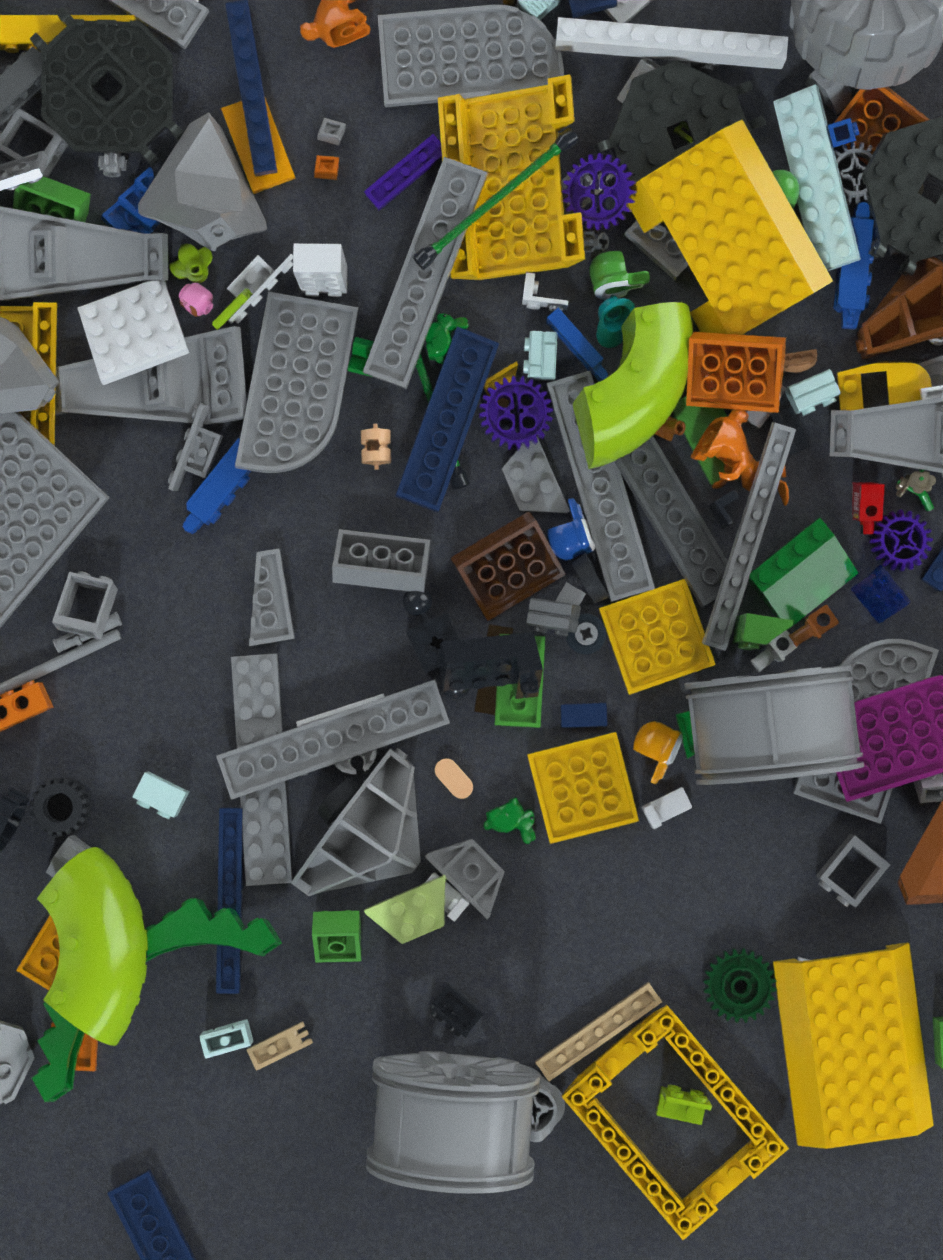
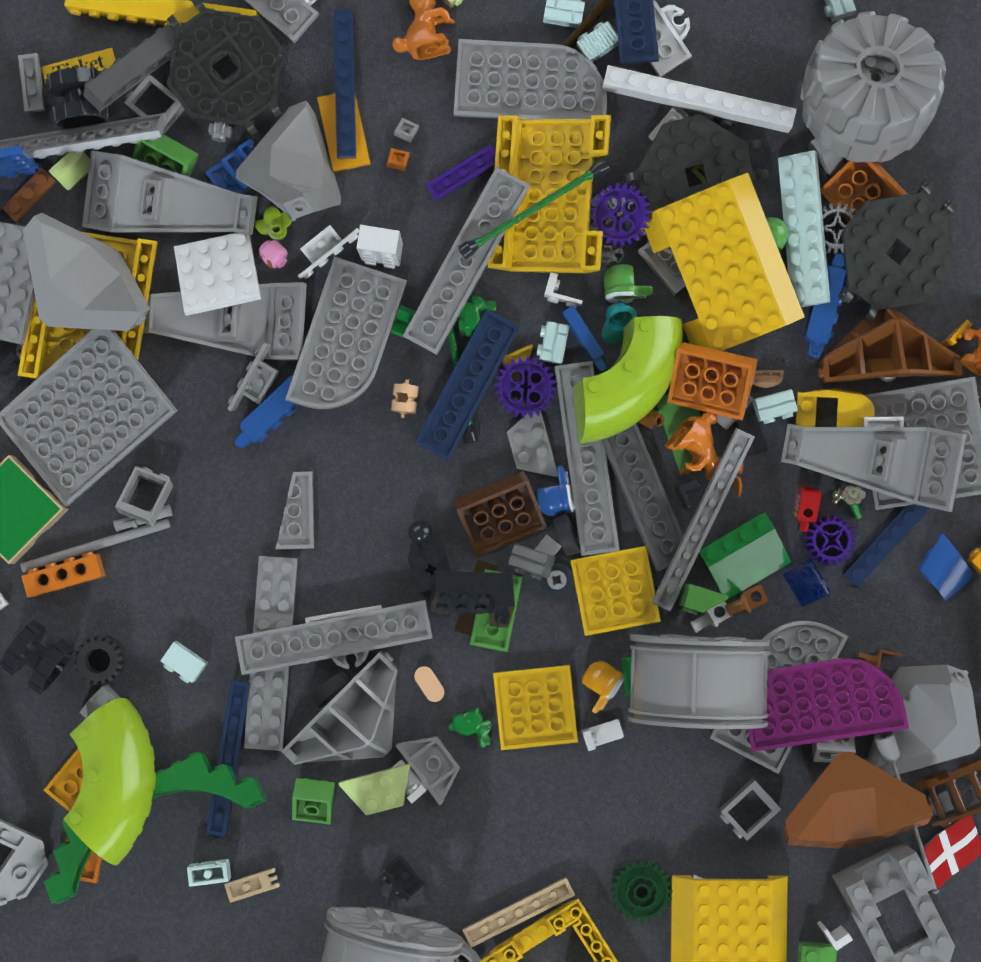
camera: 10 degrees right, 0 degrees up
(232, 308) = (302, 266): lime tile -> none
(381, 561) = (395, 495): light grey brick -> none
(583, 715) = (545, 647): dark blue tile -> none
(843, 132) = (831, 193): blue brick -> none

